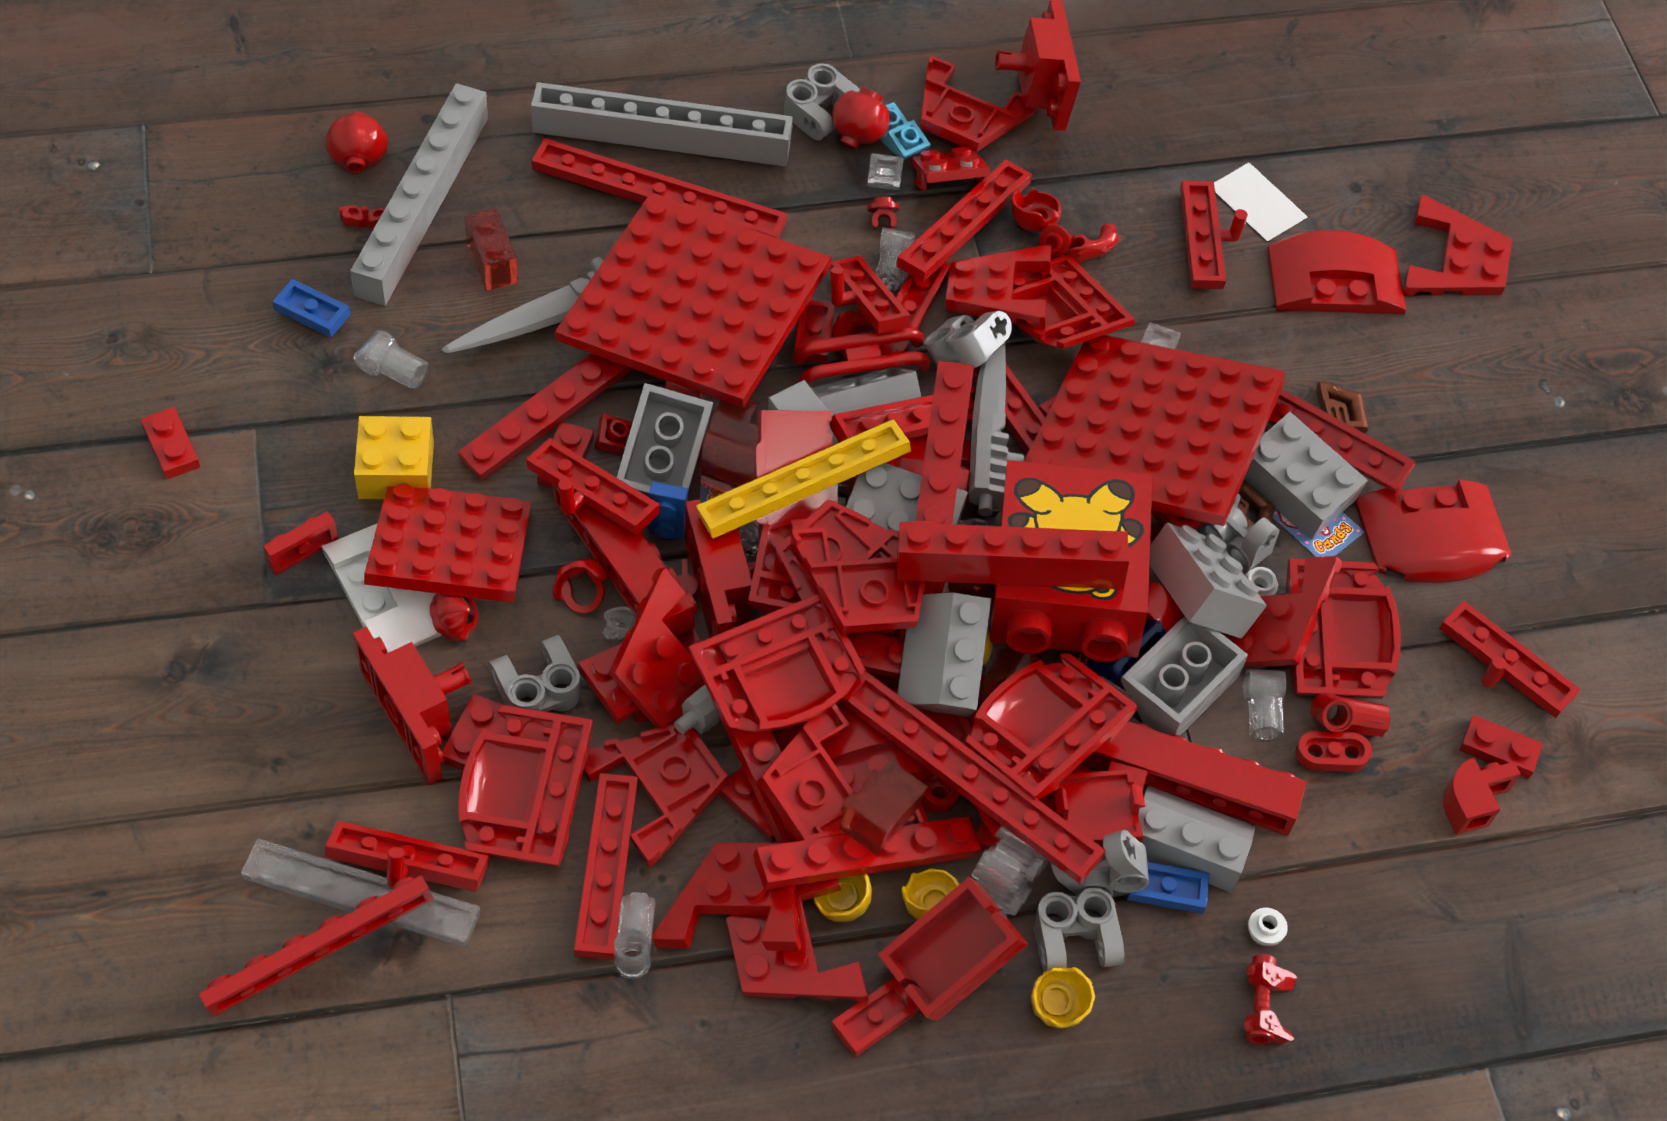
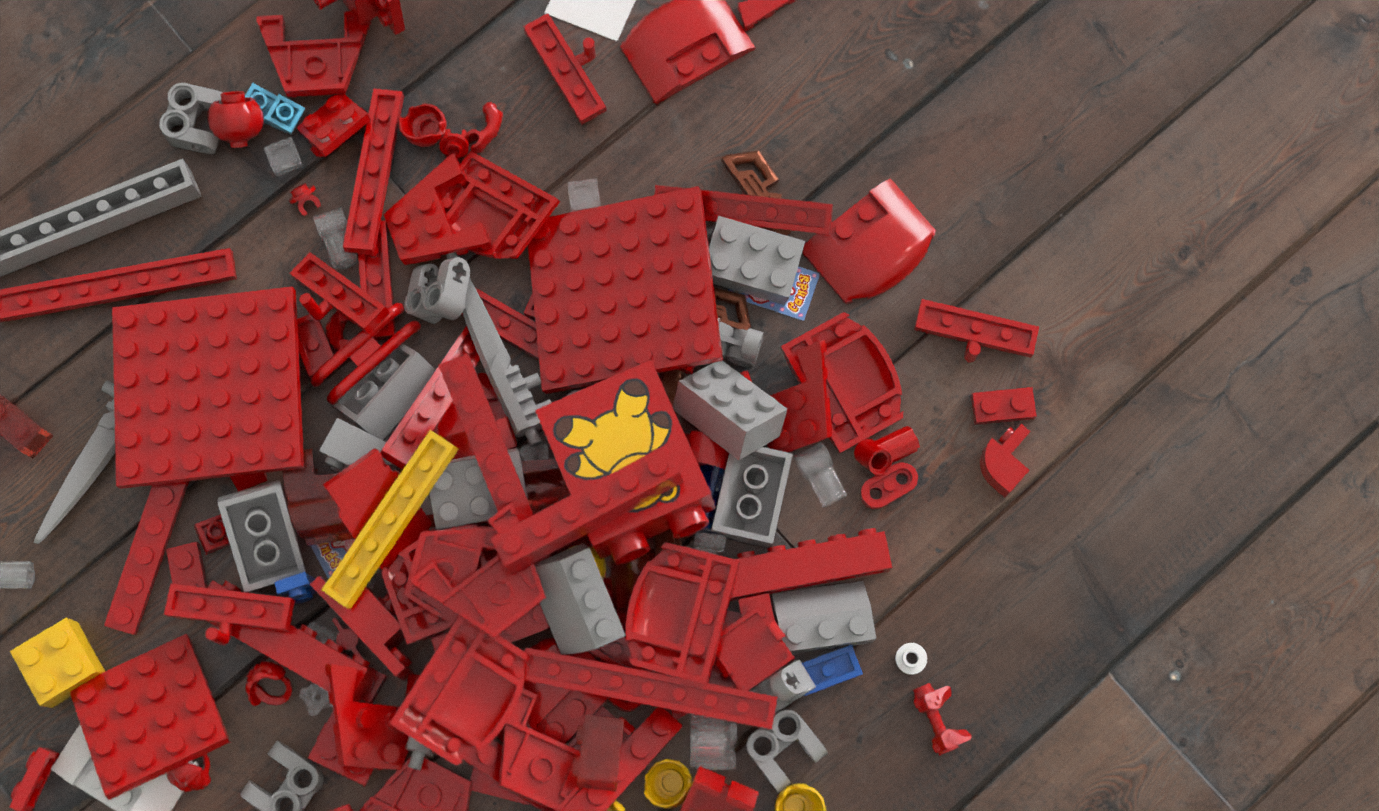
camera: 25 degrees left, 20 degrees up
(1264, 577) = (771, 363): white plate -> none

